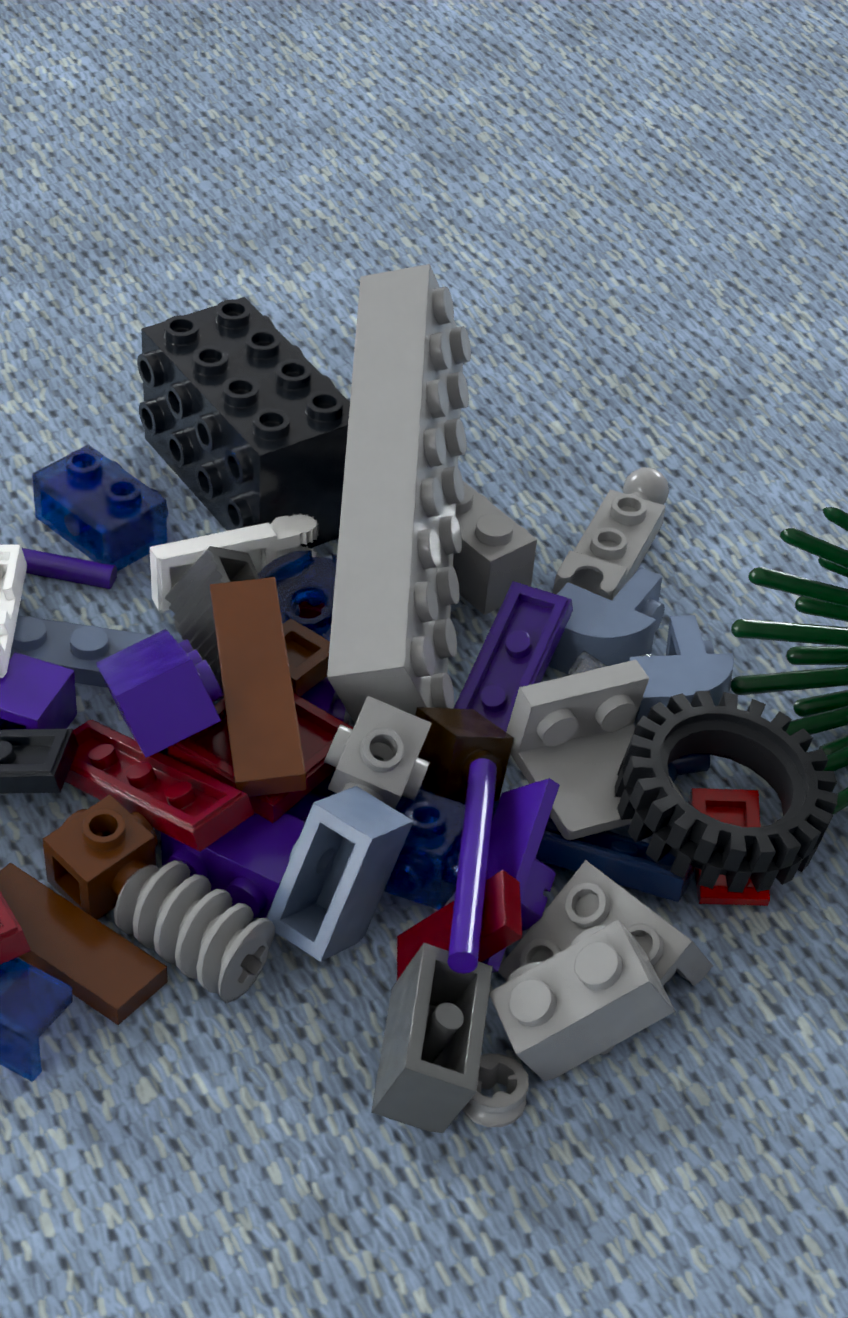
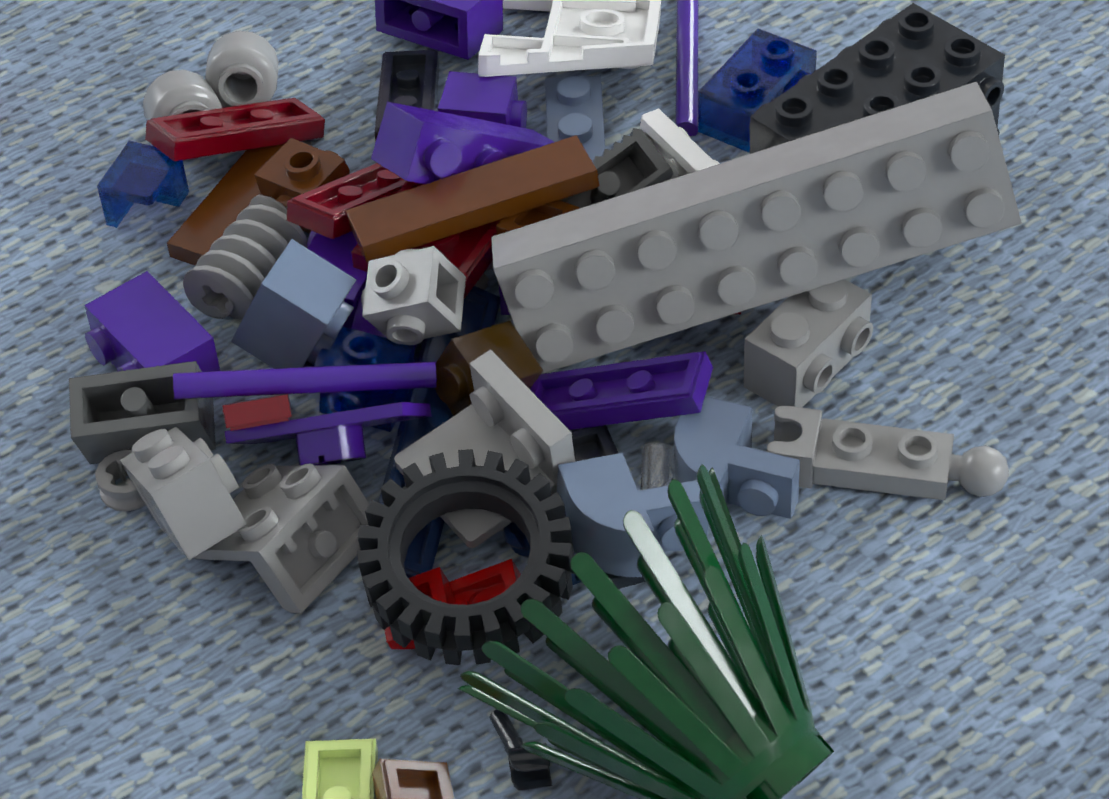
camera: 85 degrees right, 5 degrees up
(294, 1033) = (146, 328): none -> dark purple brick

